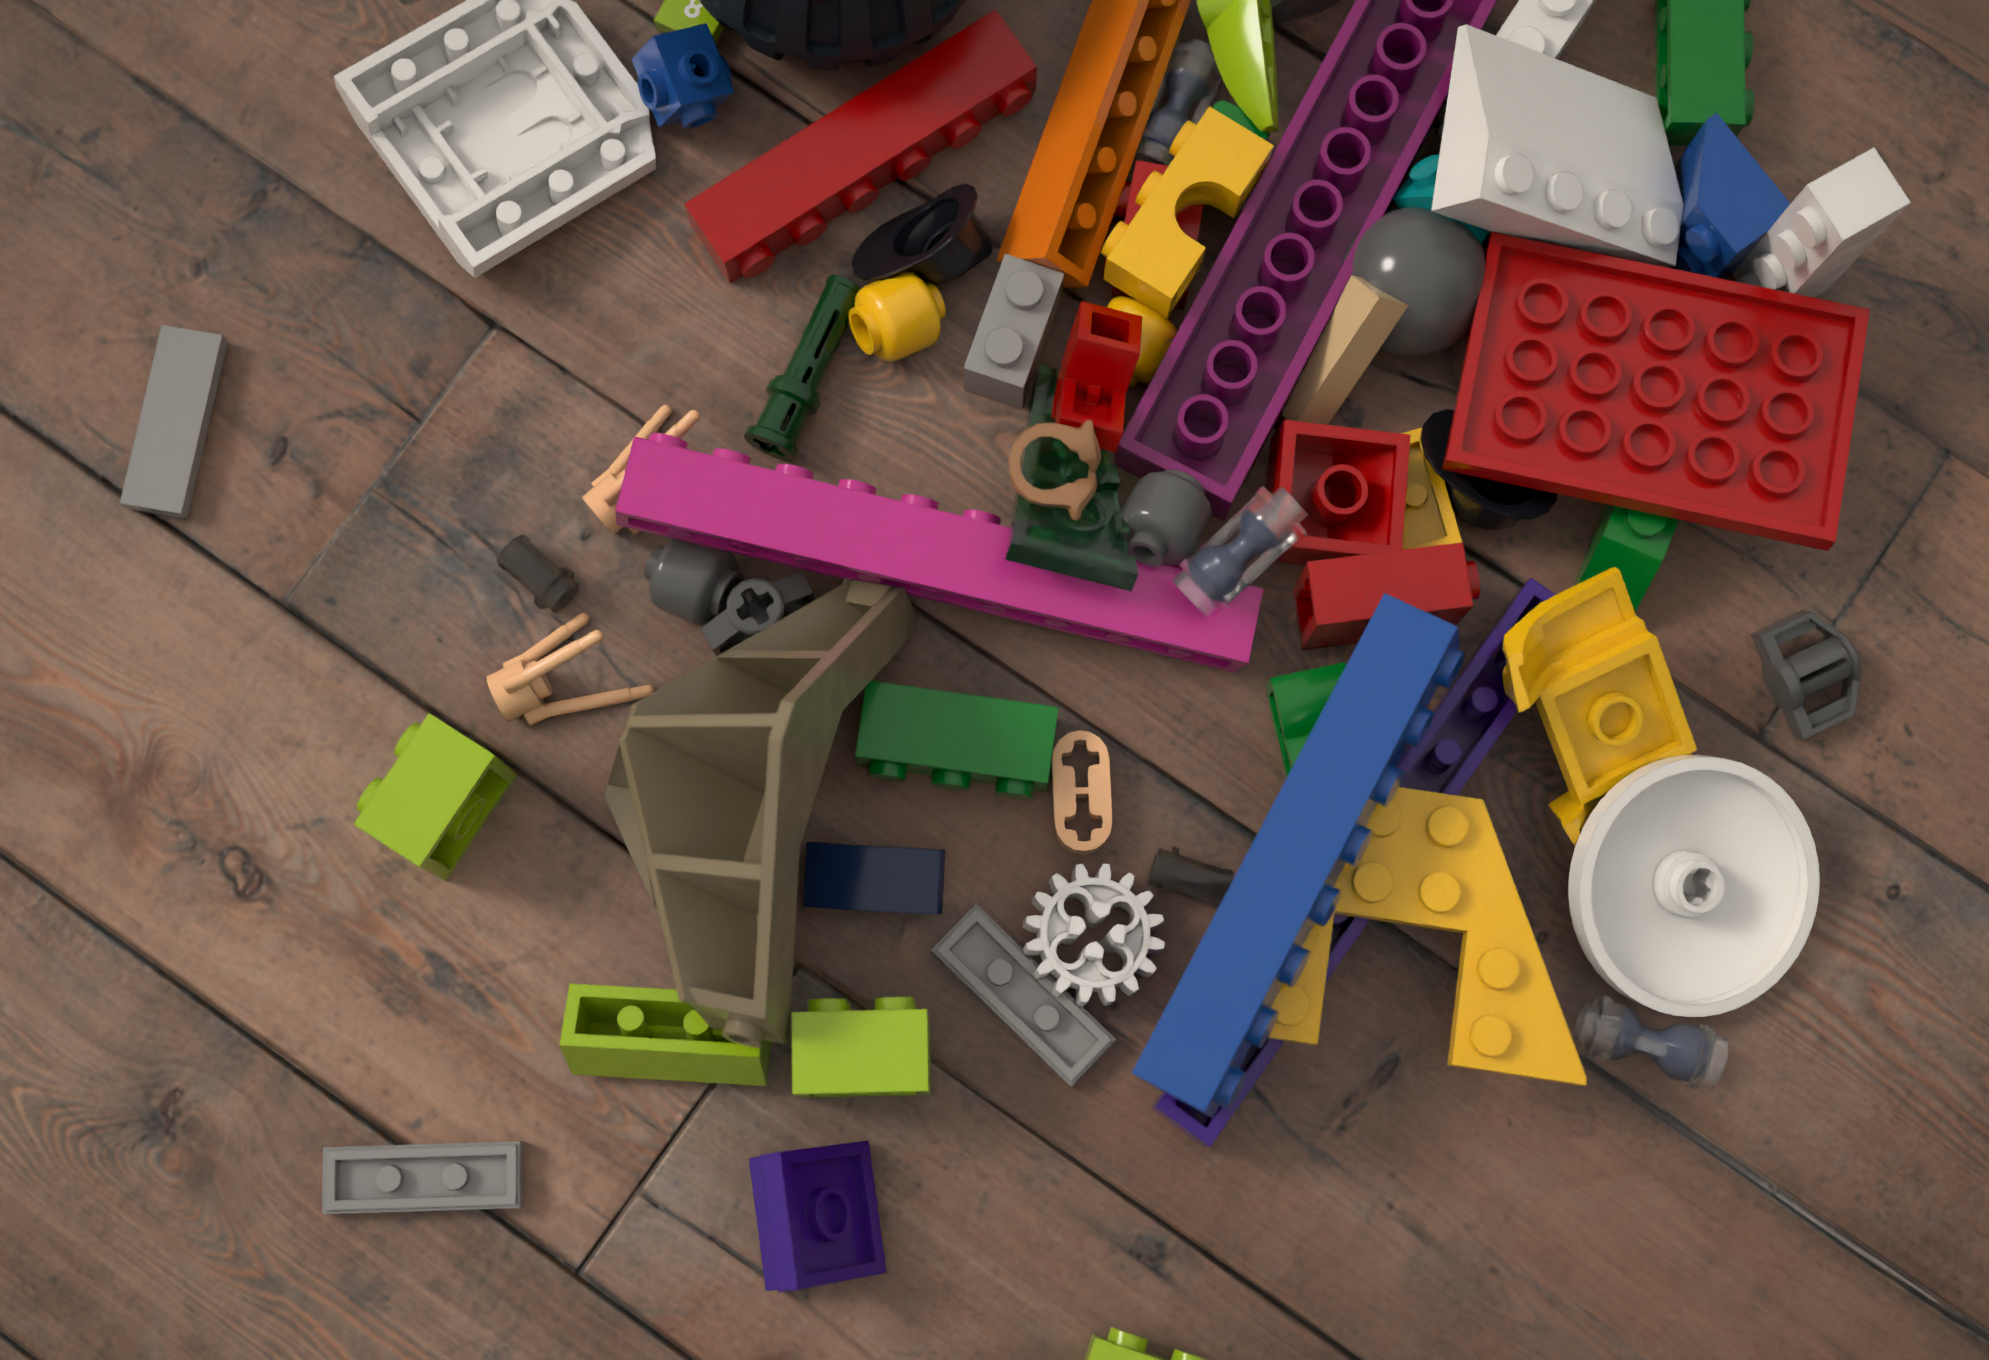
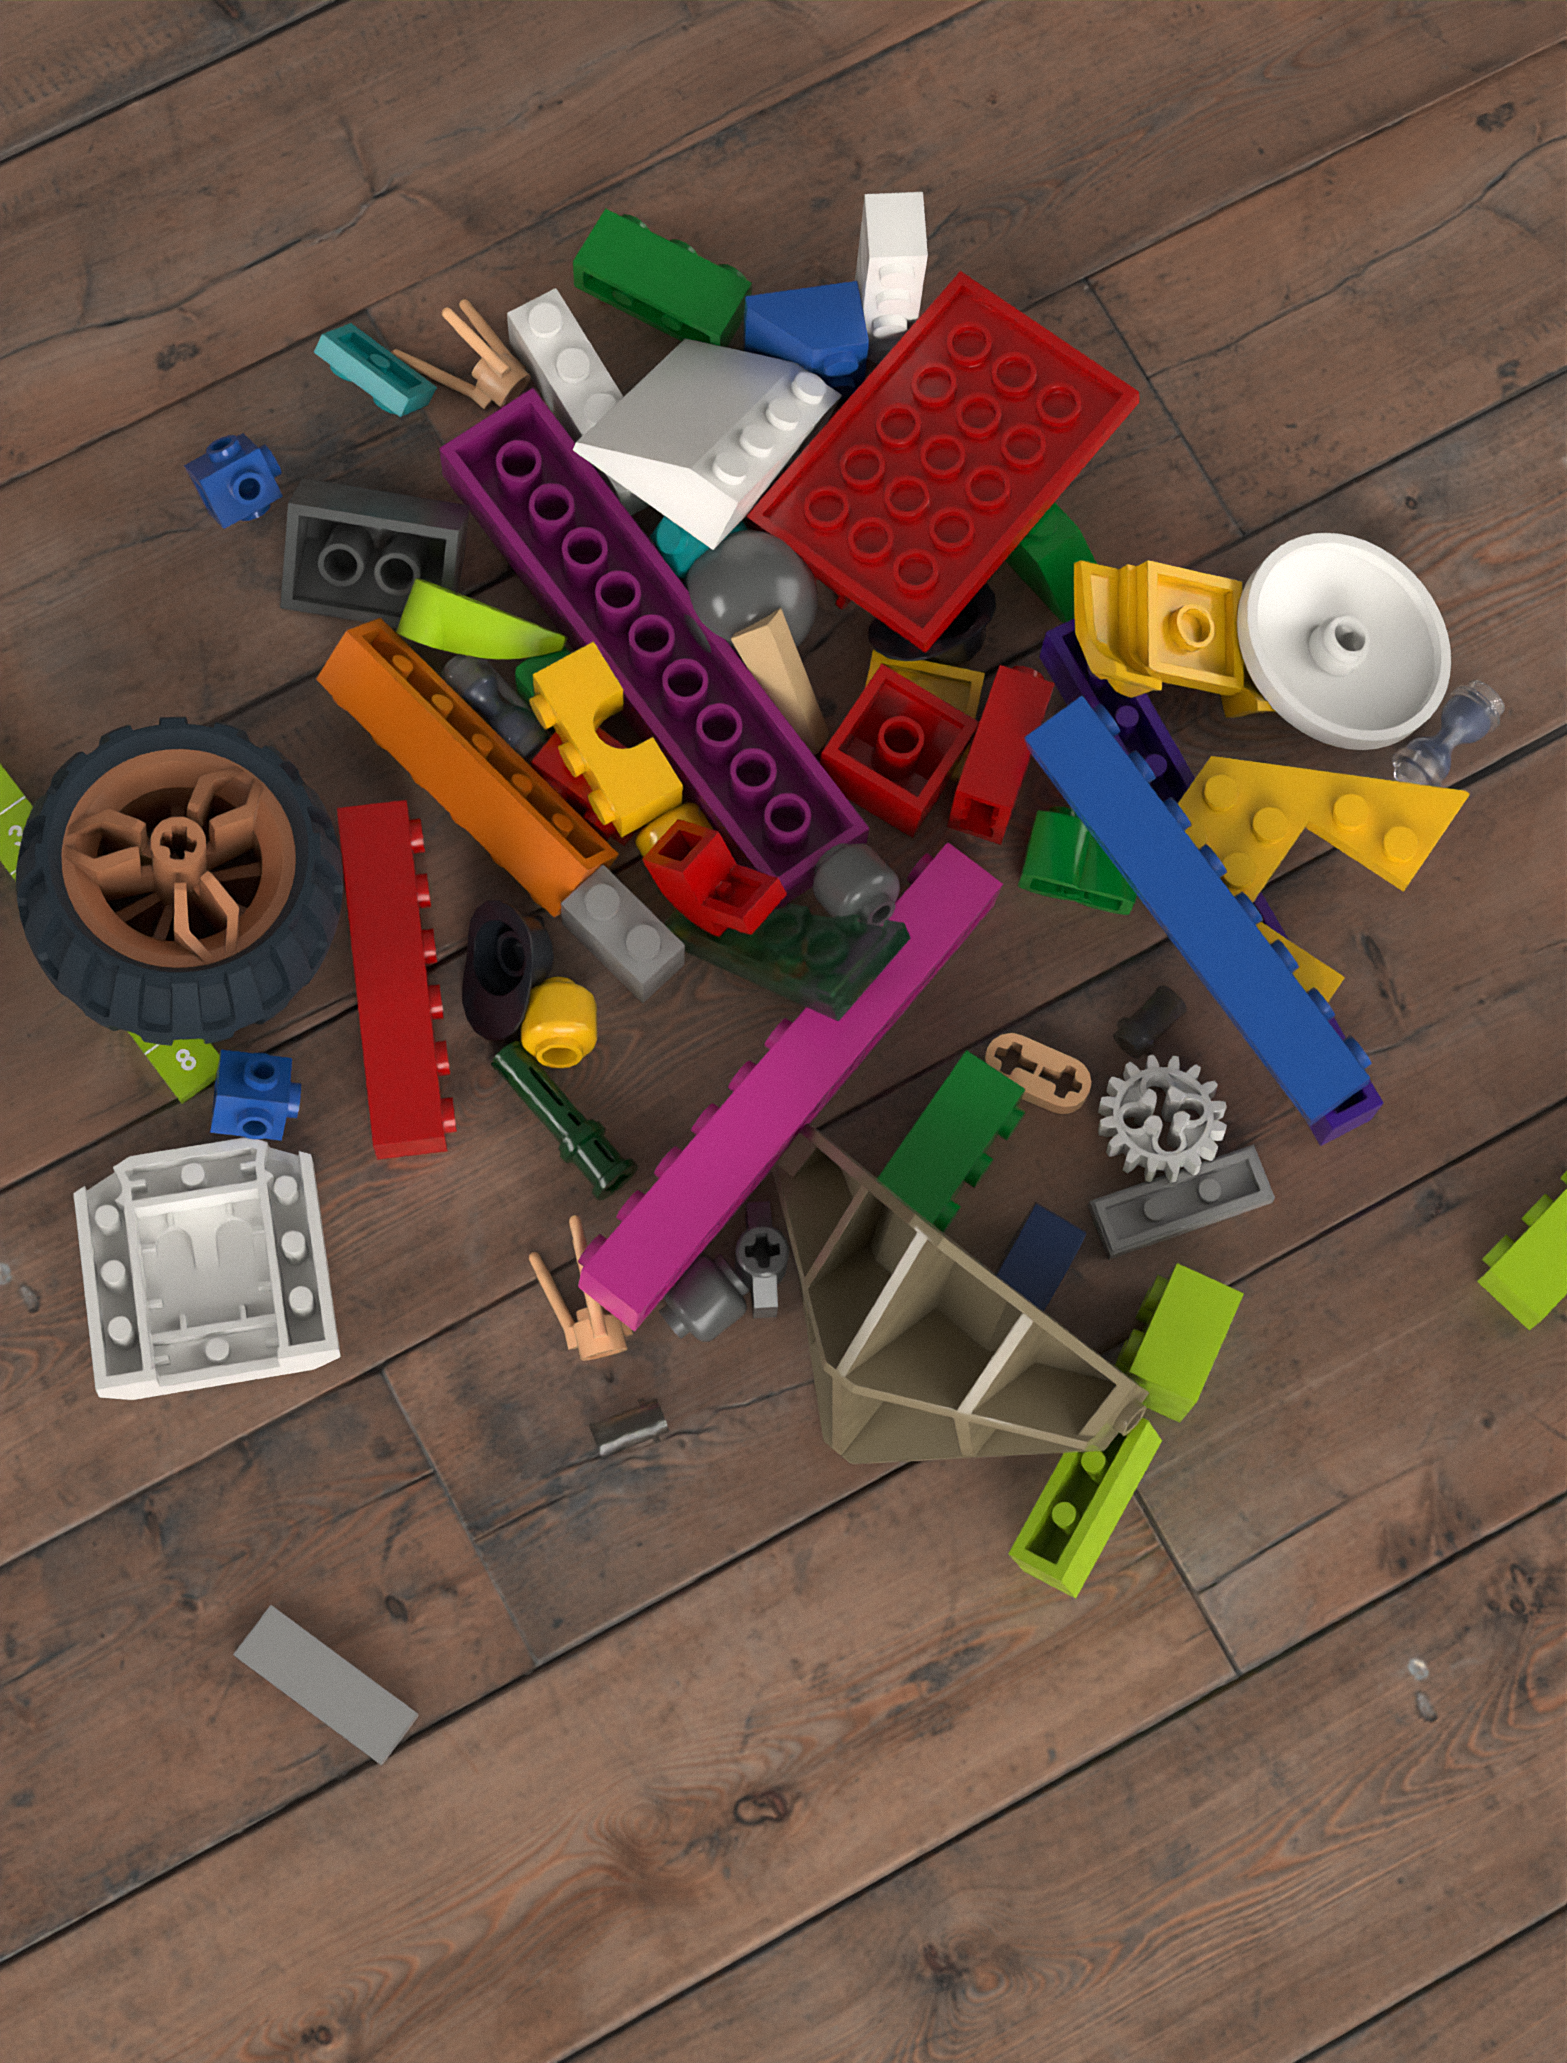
camera: 70 degrees left, 5 degrees down
(423, 1177) = (1102, 1766): light grey tile -> none
(434, 796) = (792, 1595): lime brick -> none
(524, 682) = (723, 1486): light nougat plant -> none
(817, 1216) = (1288, 1453): dark purple bracket -> none
(1069, 496) = (810, 942): medium nougat piece -> none
(1219, 571) = (925, 867): clear piece -> none
(1809, 672) = (1214, 471): dark grey piece -> none

